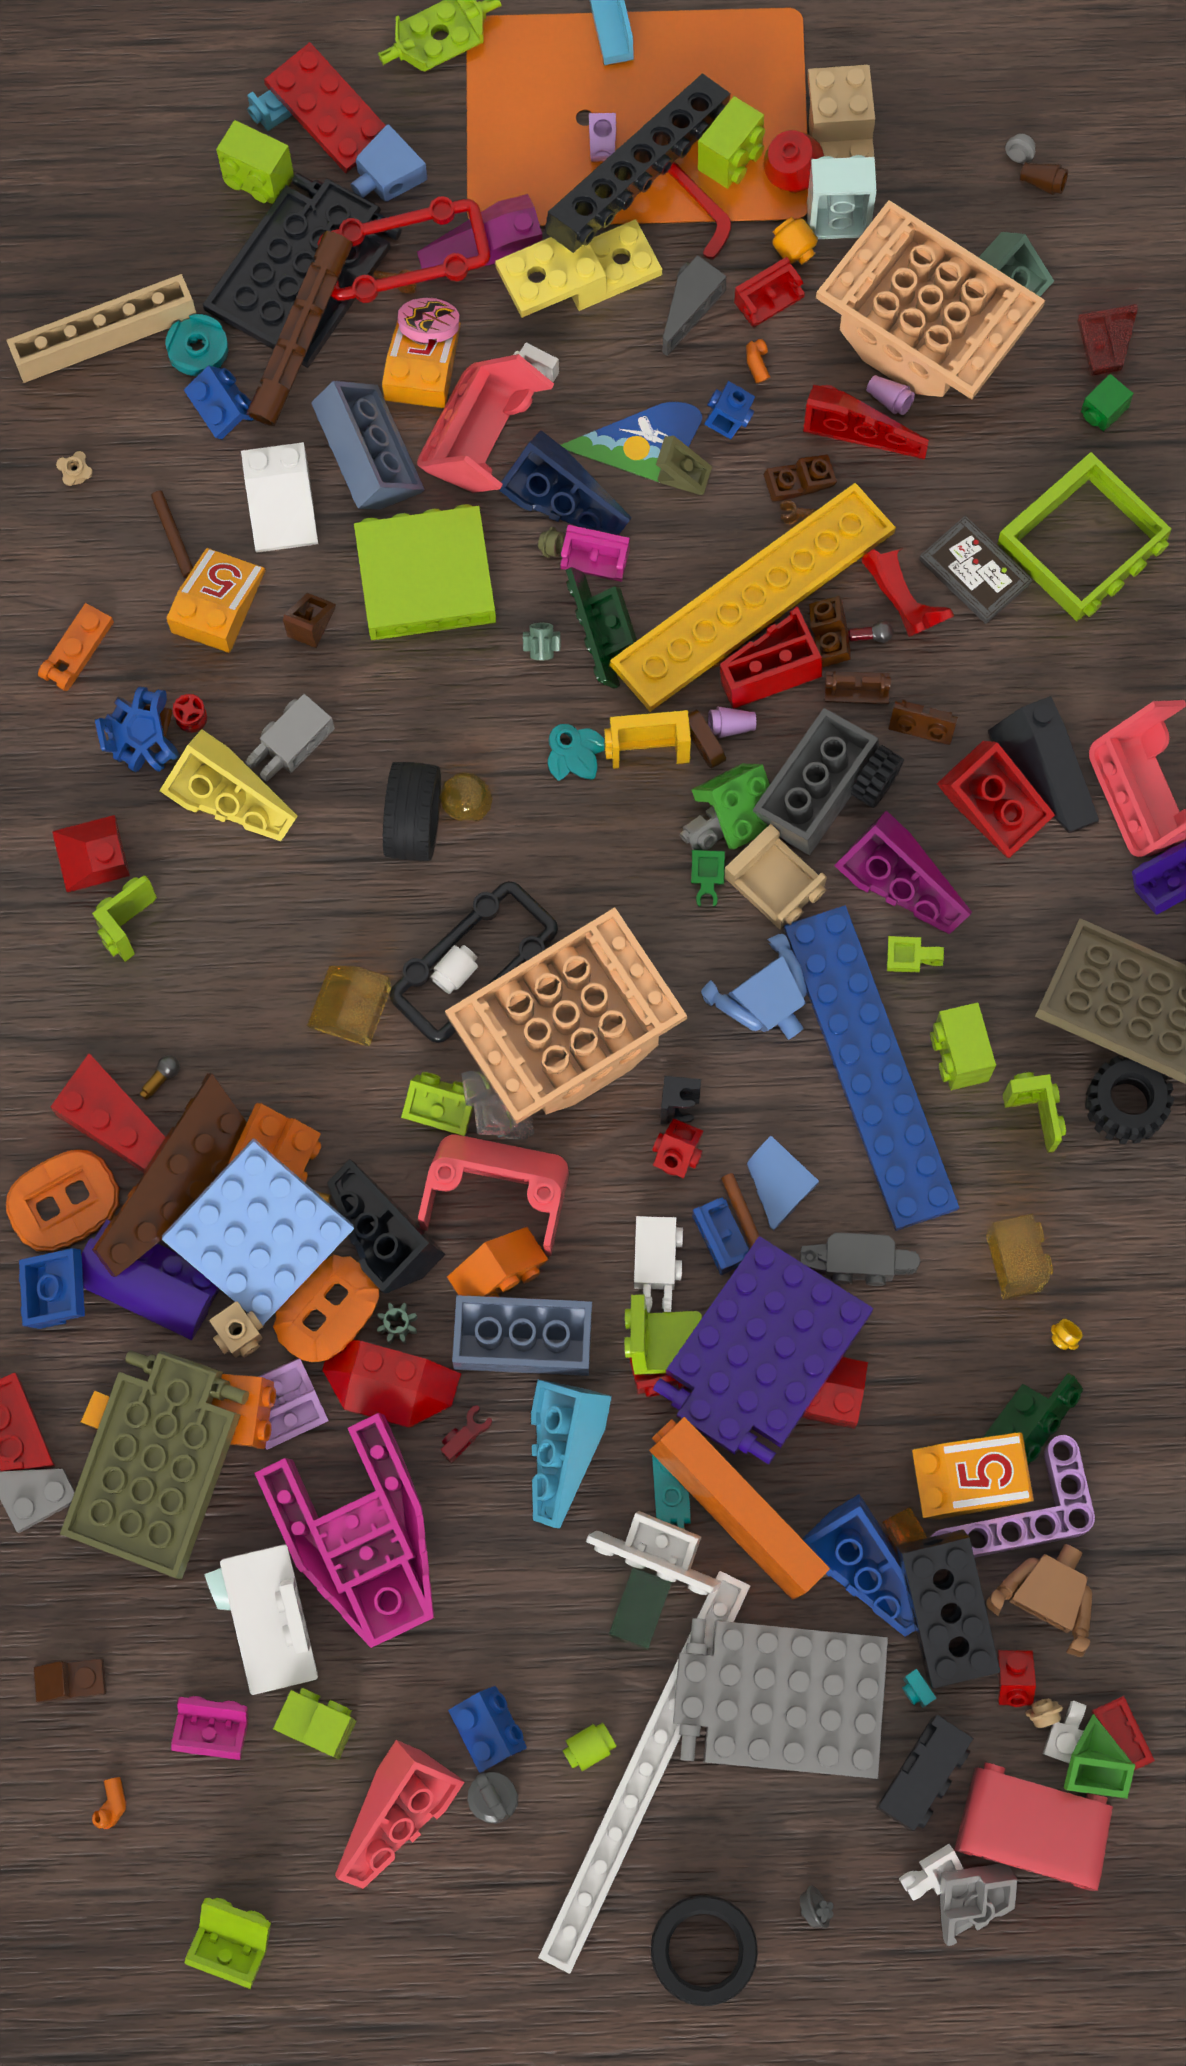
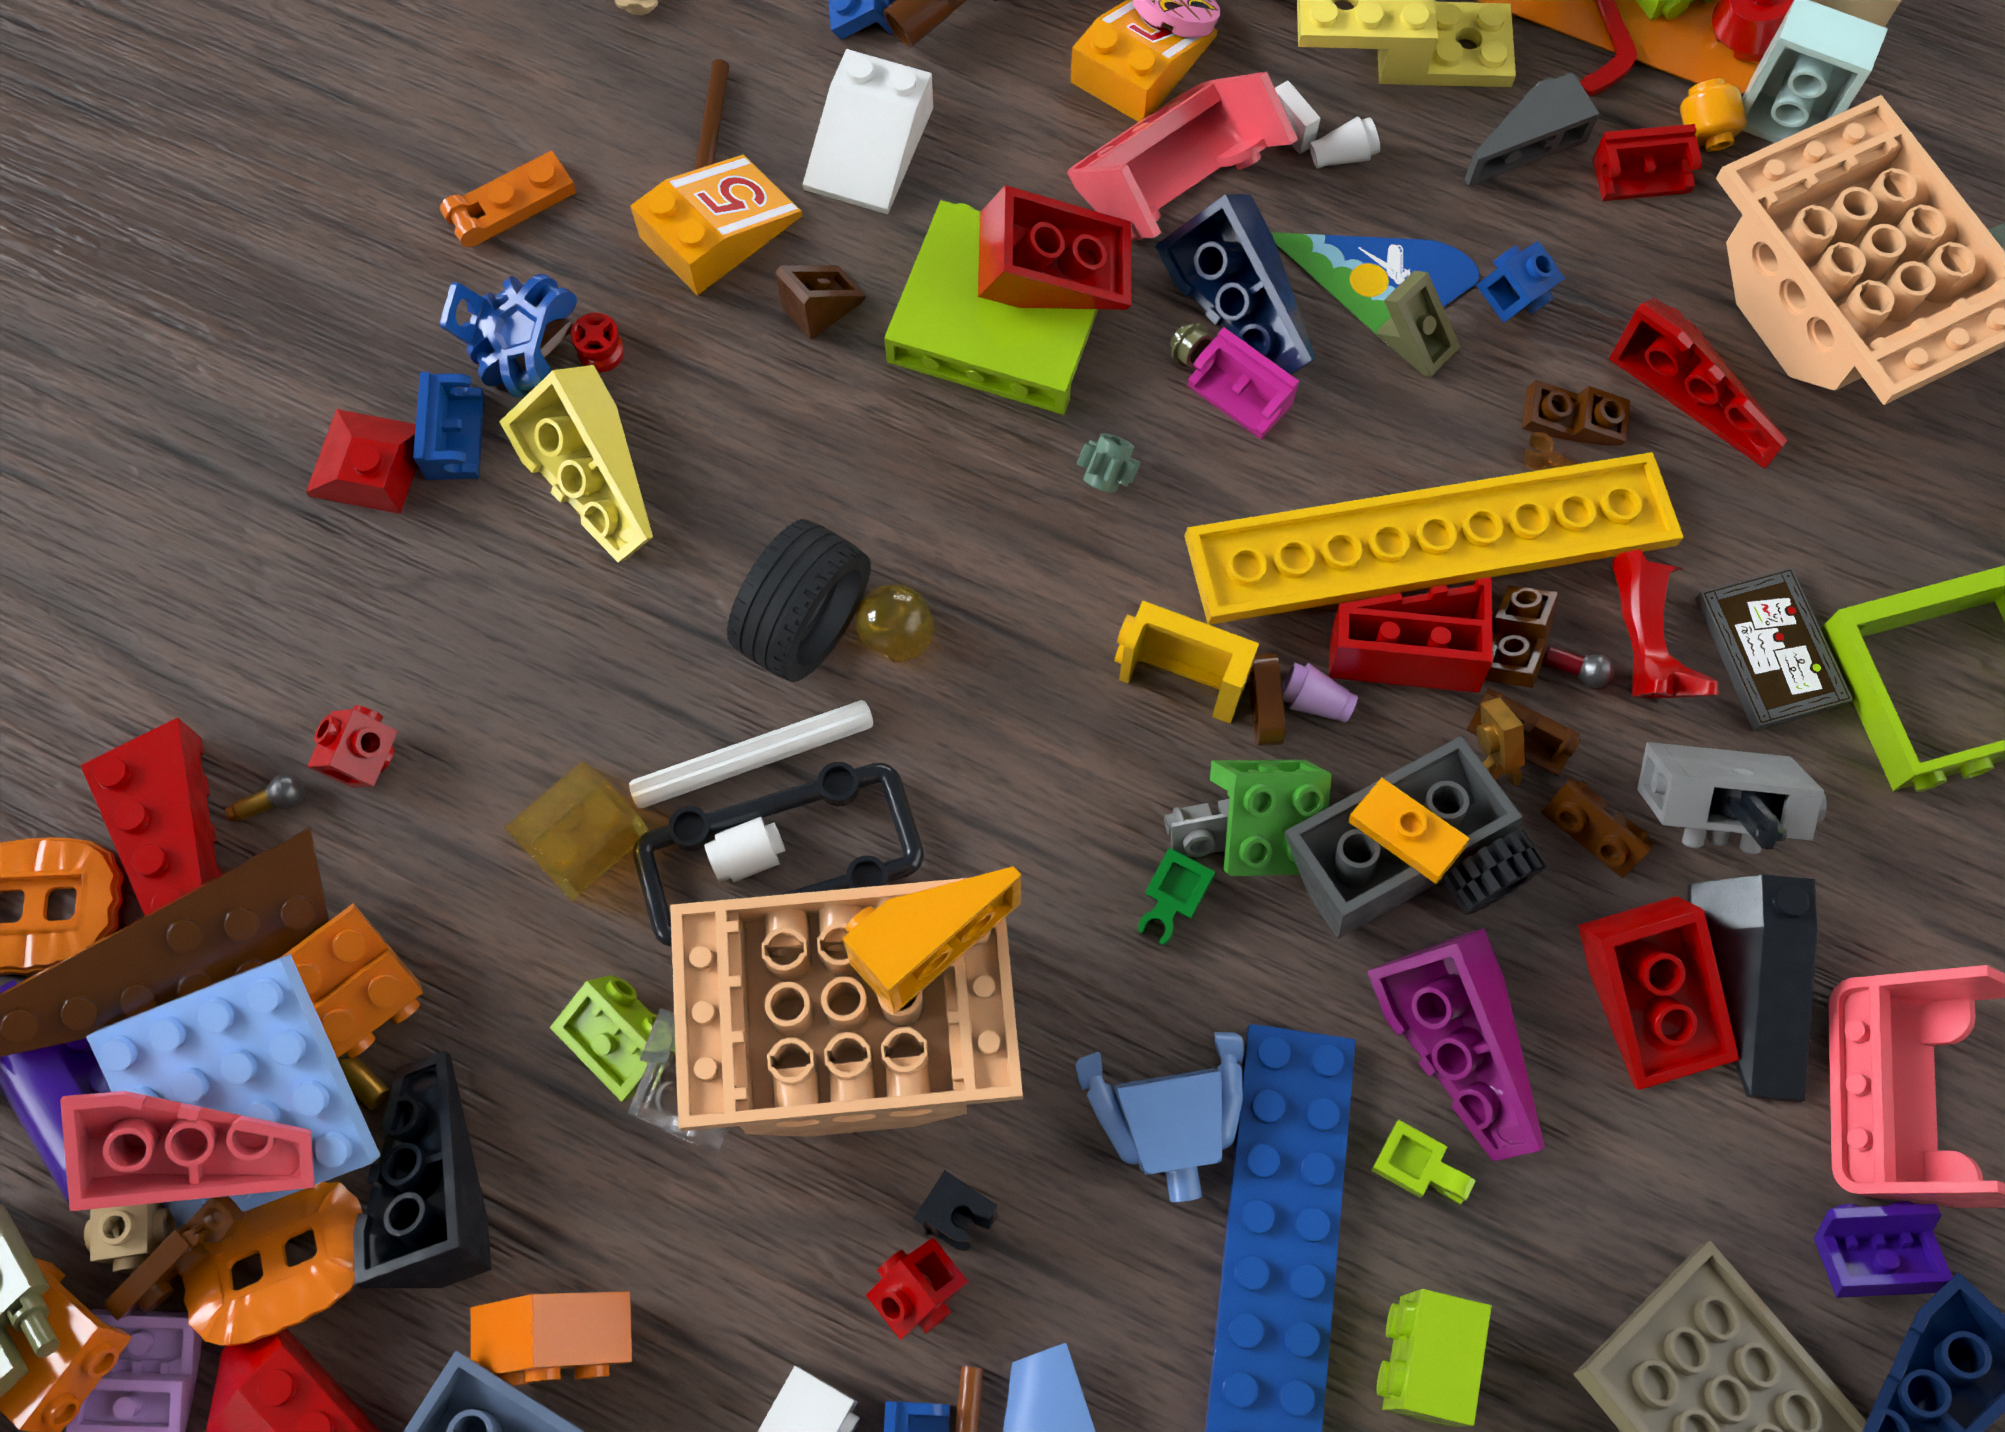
camera: 25 degrees right, 5 degrees down
(116, 911) = (340, 546): lime bracket -> none
(131, 808) = (448, 427): none -> blue hinge
(196, 1021) = (353, 746): none -> red brick
(246, 1270) = (160, 1150): none -> coral wedge
(278, 1324) = (175, 1255): none -> reddish brown hinge
(291, 737) = (705, 434): light grey hinge -> none
(366, 444) = (1014, 113): sand blue slope -> none
(394, 1314) = (347, 1338): sand green gear -> none
(426, 913) = (750, 754): none -> white axle
(445, 529) = (1052, 254): none -> red slope
(542, 1171) = (694, 1213): coral windscreen -> none
(578, 755) = (1078, 638): teal plate -> none
(580, 365) = (1346, 144): none -> white cone
(593, 955) = (925, 932): none -> light orange slope
(604, 622) = (1207, 478): dark green bracket -> none
(754, 351) = (1585, 240): orange arm -> none
(775, 878) = (1270, 948): tan panel -> none
(820, 775) = (1409, 830): none -> light orange plate
(847, 699) = (1502, 739): none -> pearl gold plate
(891, 394) = (1758, 362): lavender cone -> none
(985, 669) = (1730, 792): none -> light grey piece

